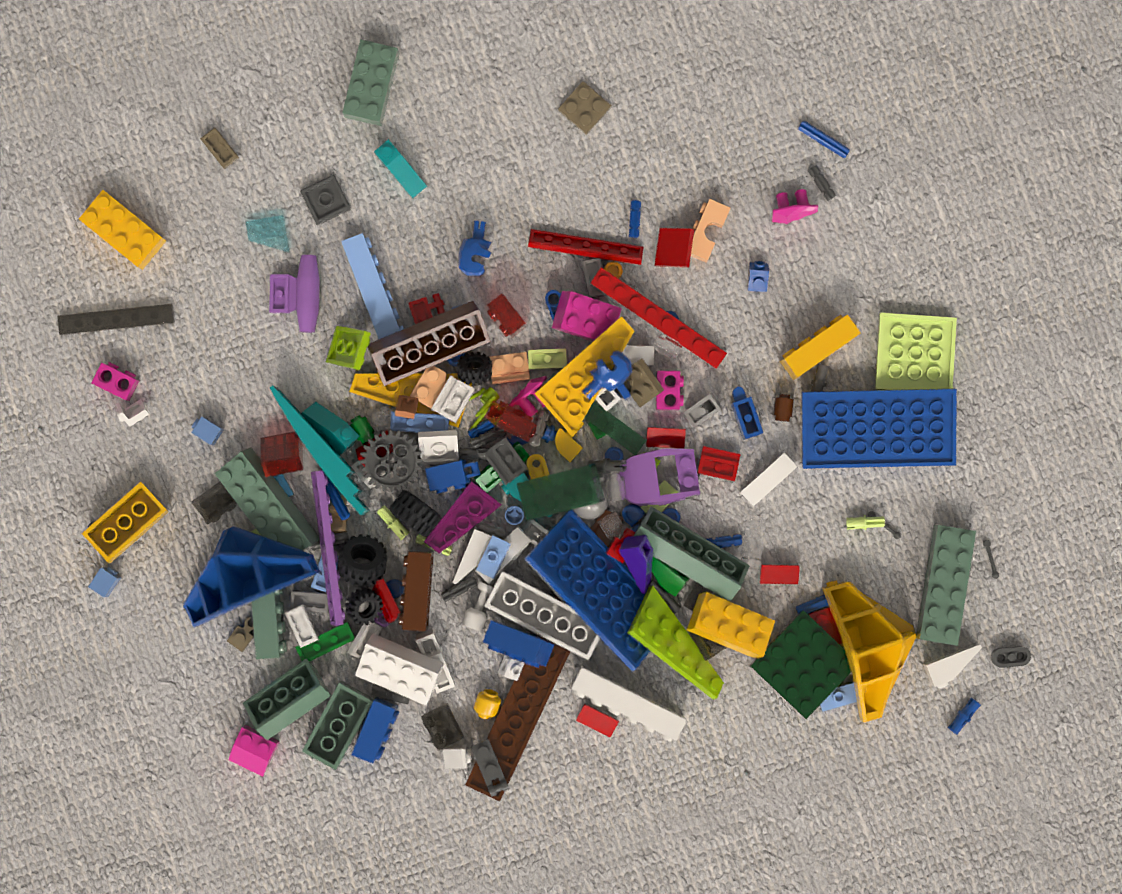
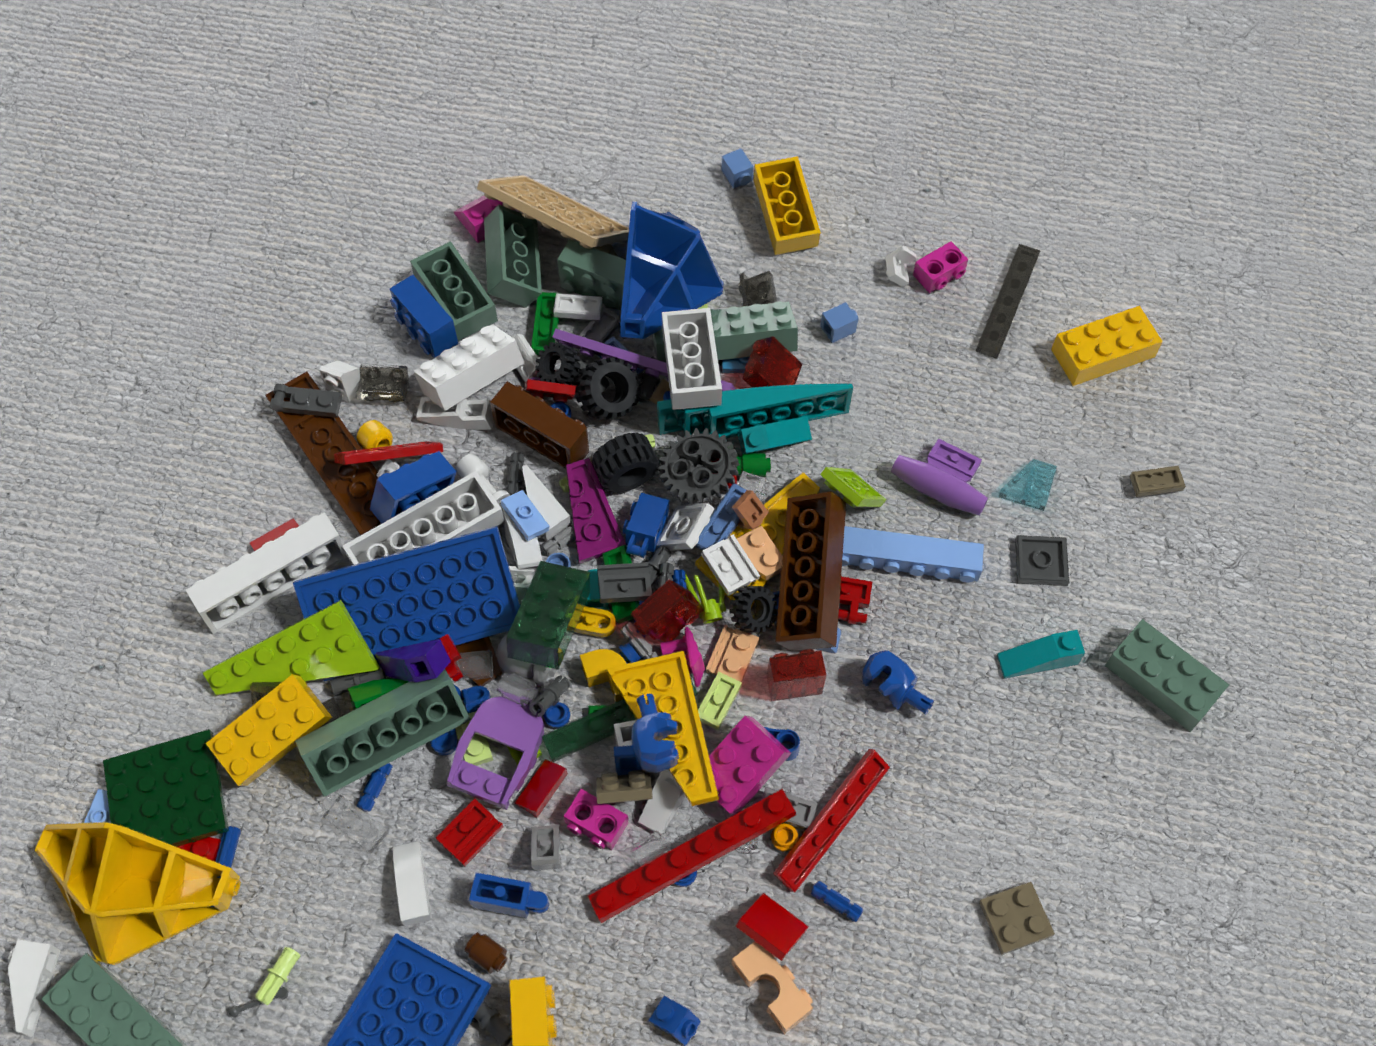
camera: 120 degrees right, 25 degrees down
(230, 689) = (554, 210): none -> tan plate
(317, 506) = (691, 358): none -> white brick
(500, 679) = (387, 452): none -> red tile
(779, 574) = (292, 832): red slope -> none

